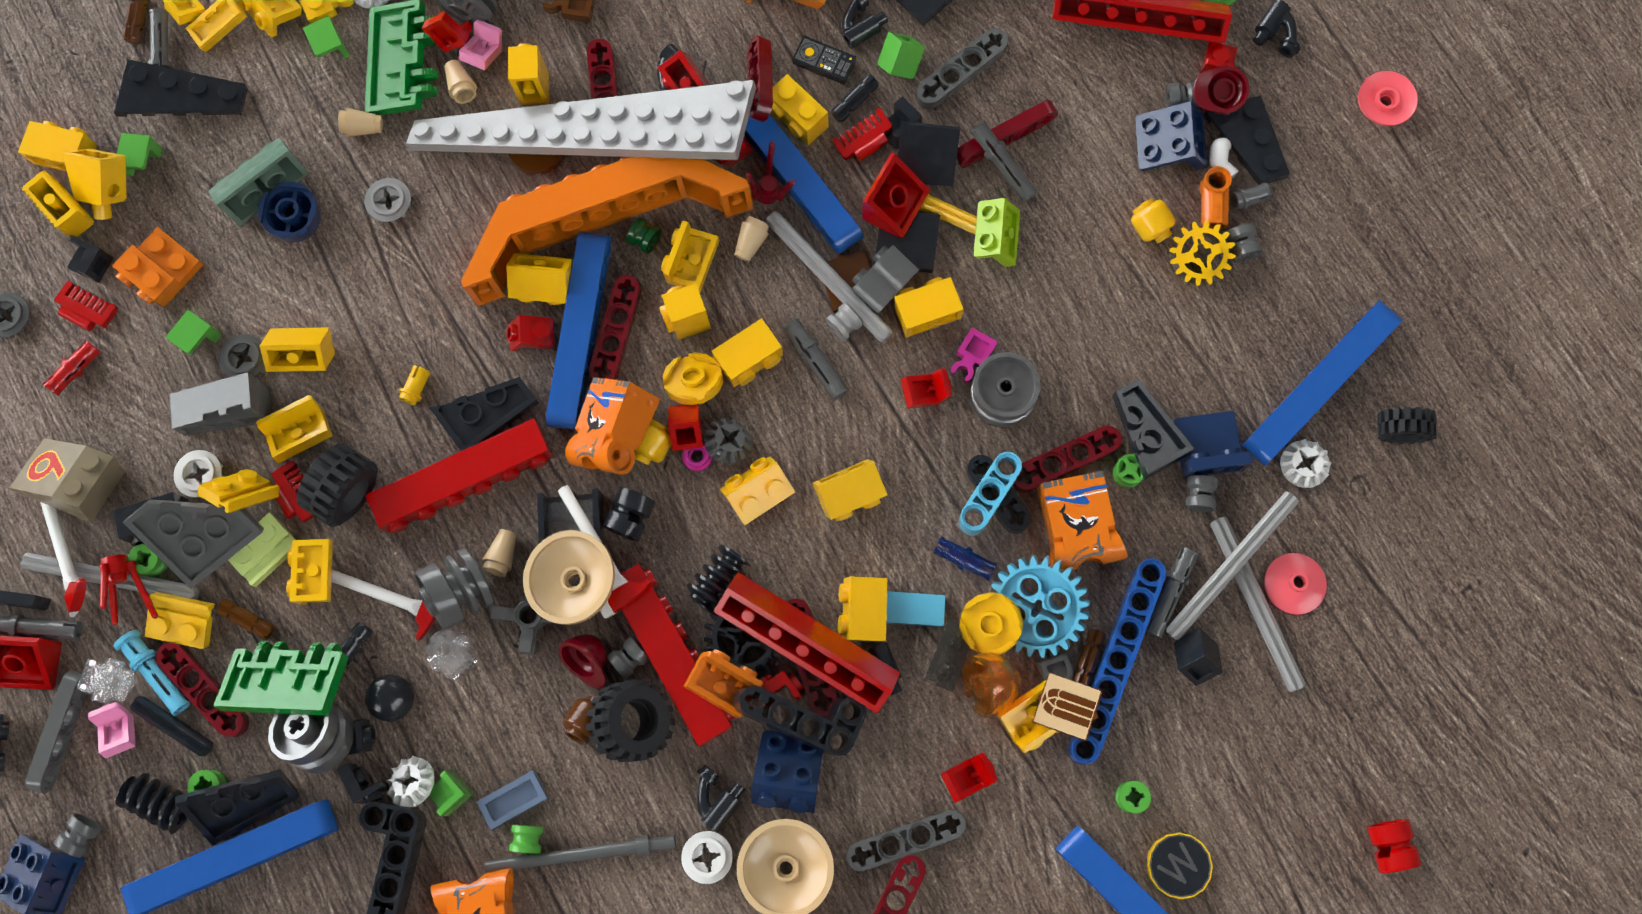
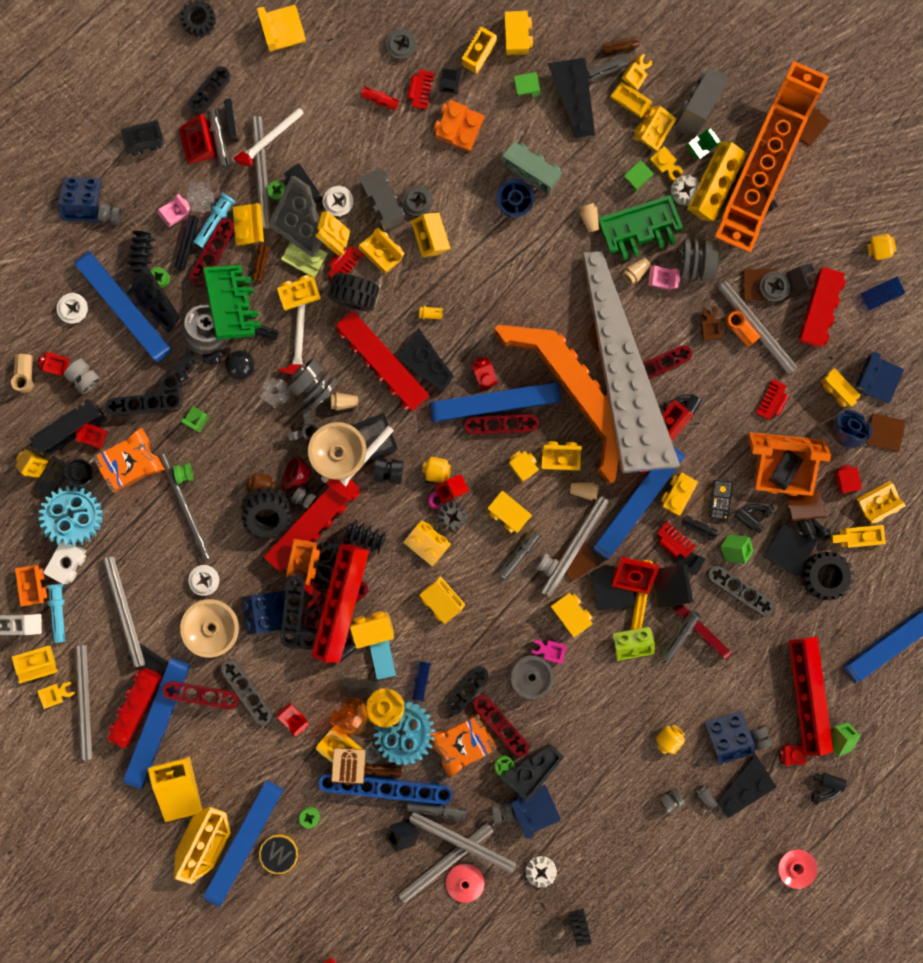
camera: 65 degrees right, 10 degrees up
(56, 734) = (163, 178): dark grey beam -> none
(69, 477) = (312, 124): dark tan slope -> none
(97, 179) = (502, 68): yellow torso -> none
(114, 571) = (264, 178): red plant -> none
(190, 332) = (422, 165): bright green panel -> none
(377, 195) = (545, 244): light grey gear -> none
(415, 792) = (190, 401): white gear -> none
(447, 32) = (665, 254): red bracket -> none
(512, 800) = (203, 457): sand blue tile -> none
(528, 74) = (651, 316): yellow brick -> none
(538, 278) = (519, 368): yellow brick -> none
(611, 426) = (436, 444): orange piece -> none
(644, 235) = (567, 423): dark green wheel -> none
(692, 379) = (483, 483): yellow tile -> none
(718, 813) = (234, 581): black plant -> none
(760, 70) = (692, 464): dark red beam -> none
(768, 187) = (622, 491): dark red plant -> none
(884, 278) = (581, 583): dark grey brick -> none
(926, 389) = (519, 628): red bracket -> none
(996, 480) = (456, 678): medium azure beam -> none
(1197, 233) = (652, 769): yellow gear -> none
(1215, 200) = (694, 776): orange piece -> none
(1219, 155) = (726, 771): white arm -> none
(1221, 89) = (768, 761): dark red hat -> none
(1322, 383) = (595, 870): blue beam -> none

